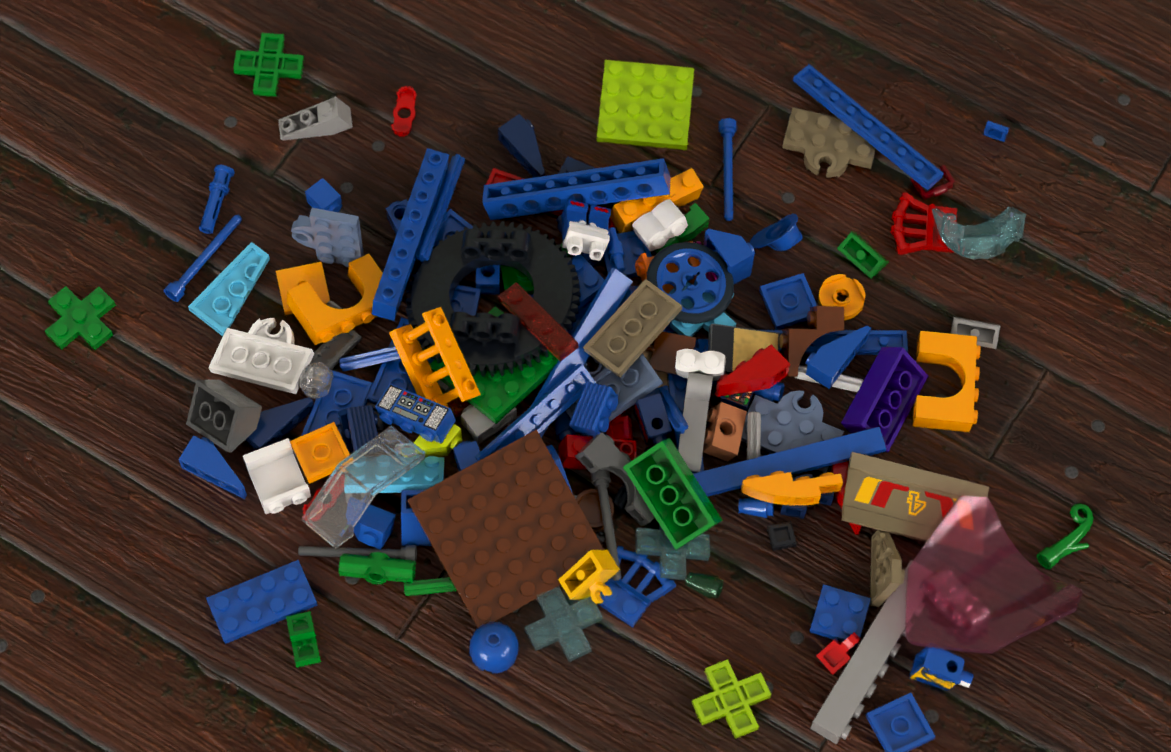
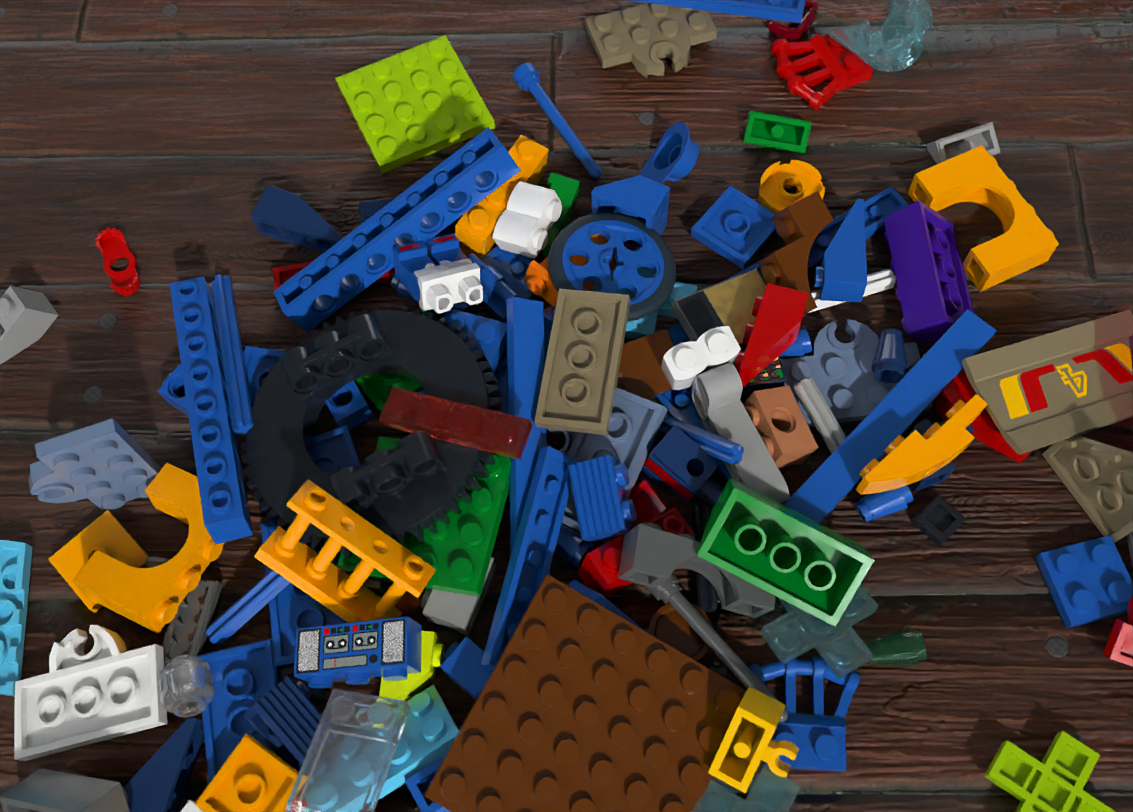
camera: 25 degrees left, 0 degrees up
(323, 196) = (61, 418): blue brick -> none
(816, 428) = (890, 357): none -> dark blue cone

